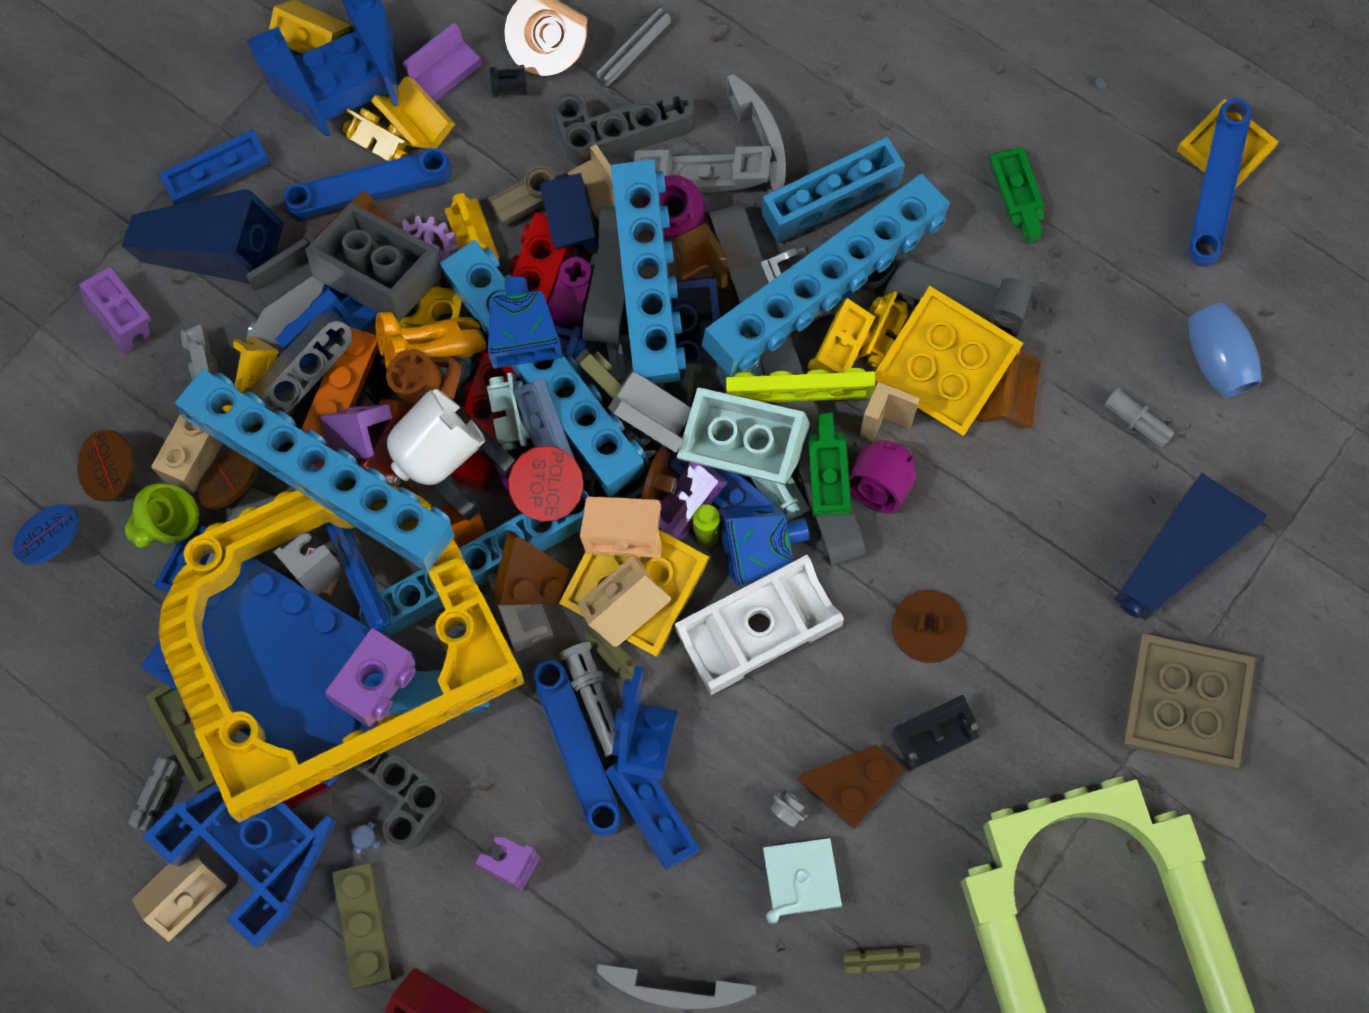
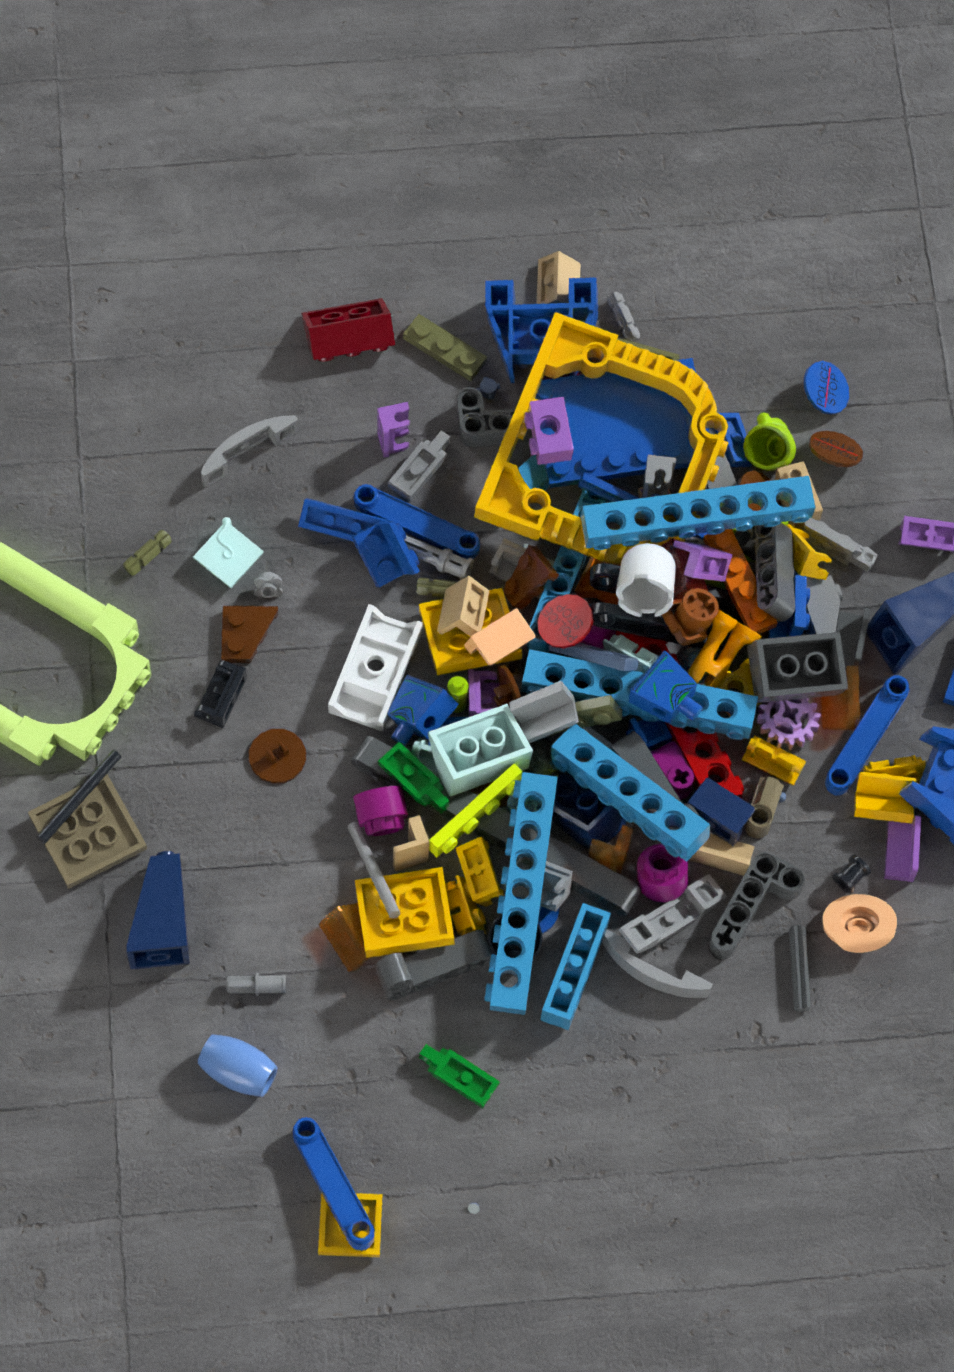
camera: 130 degrees right, 5 degrees down
(516, 806) = (419, 467): none -> light grey hinge
(940, 424) = (373, 870): none -> light grey bar
(1175, 736) = (79, 796): none -> black bar

